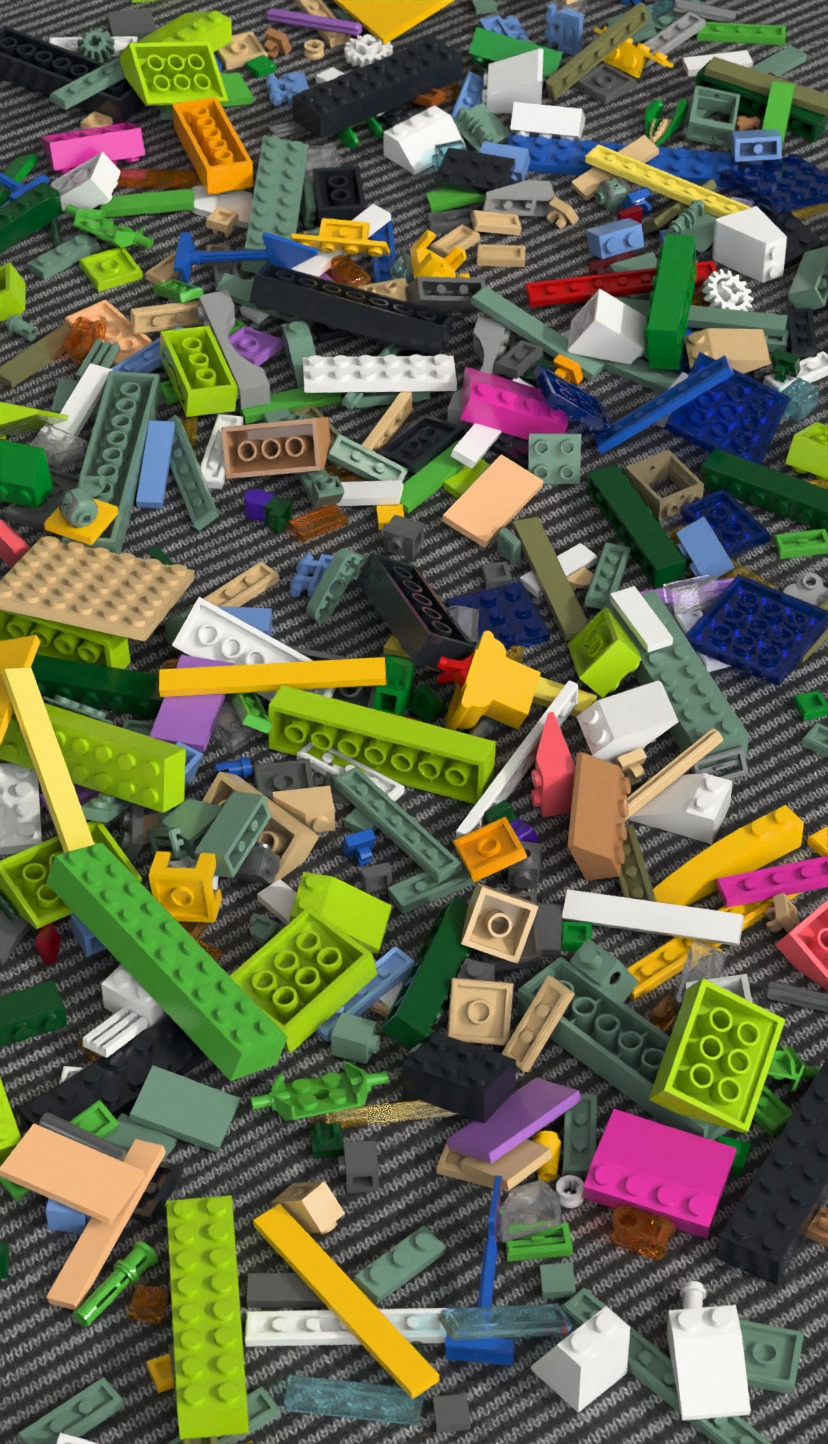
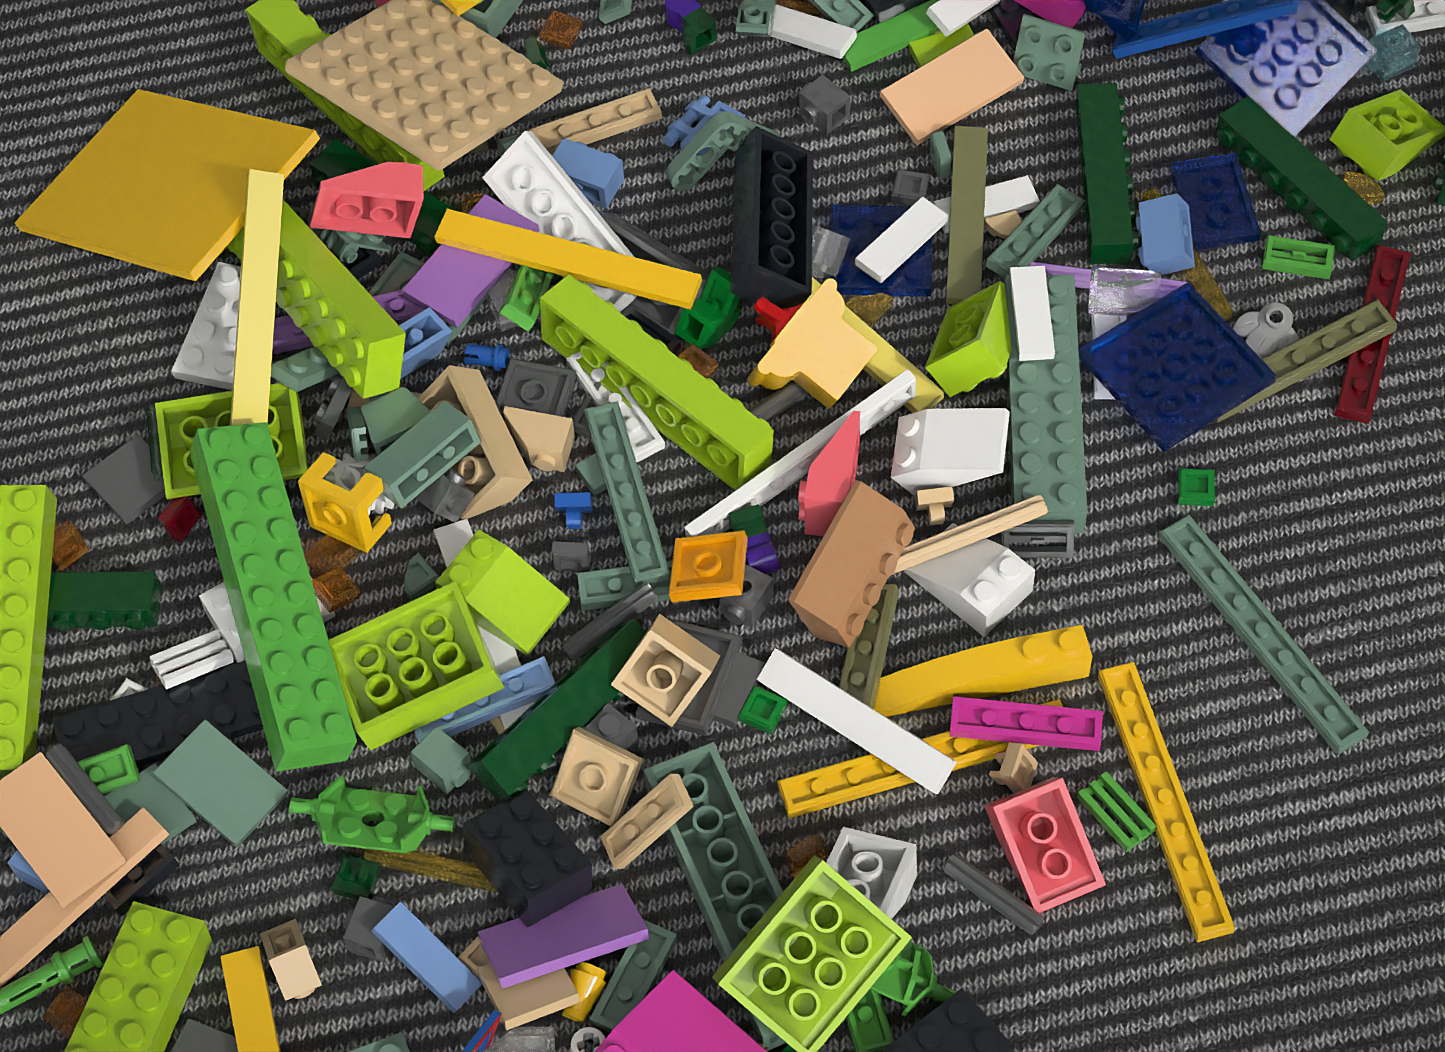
camera: 25 degrees right, 15 degrees up
(102, 676) = (371, 200): none -> coral slope
(168, 541) = (561, 29): none -> clear orange tile
(318, 522) = (740, 54): clear orange tile -> none
(386, 512) = (829, 66): yellow tile -> none
(416, 1168) = (426, 957): none -> medium blue tile
(427, 704) = (741, 341): dark green tile -> none
(428, 913) = (601, 626): none -> dark grey axle
(513, 605) = (901, 239): none -> white tile
(600, 966) = (753, 766): sand green torso -> none
(664, 465) = (1174, 98): dark tan window -> none
(702, 962) = (881, 806): clear slope -> none

